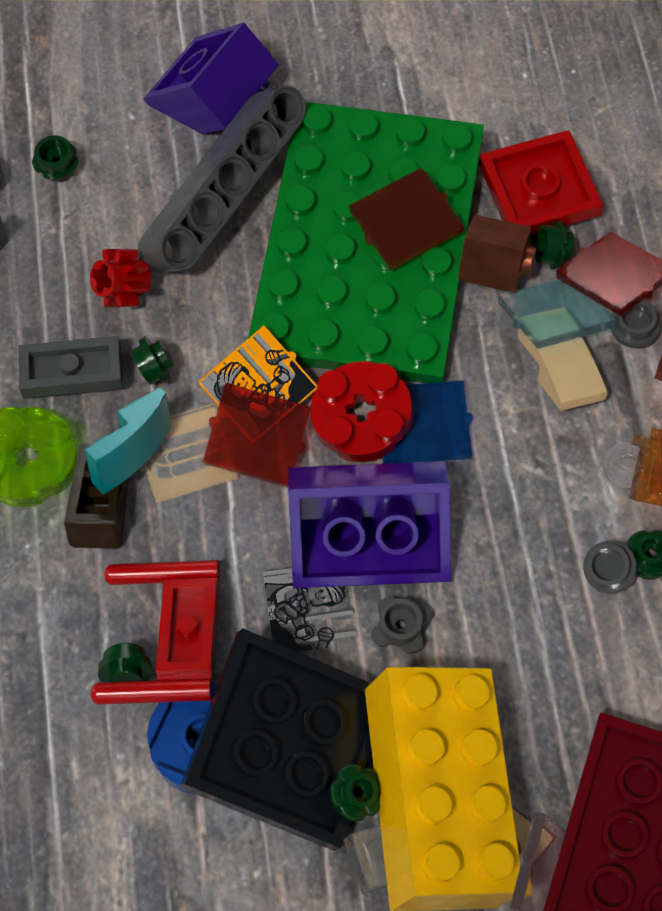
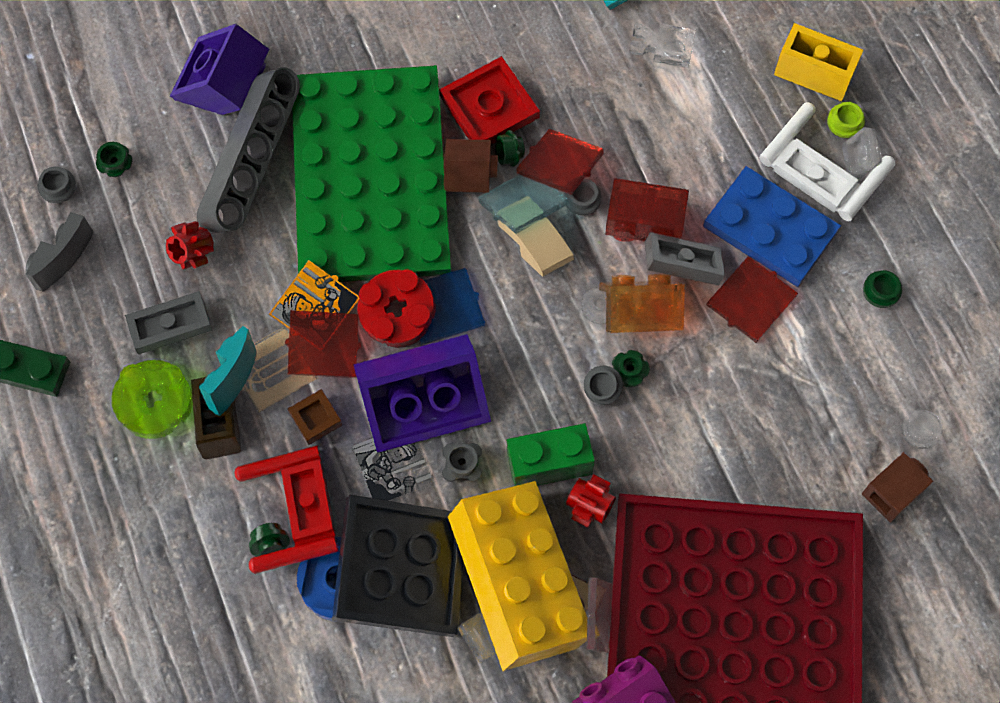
camera: 15 degrees left, 5 degrees up
(152, 360) = (230, 304): dark green plate -> none
(224, 523) = (315, 417): none -> reddish brown plate
(344, 799) = (449, 595): dark green plate -> none
(406, 218) = (395, 153): clear red piece -> none
(520, 641) = (551, 455): none -> green brick
(560, 713) = (590, 500): none -> red gear

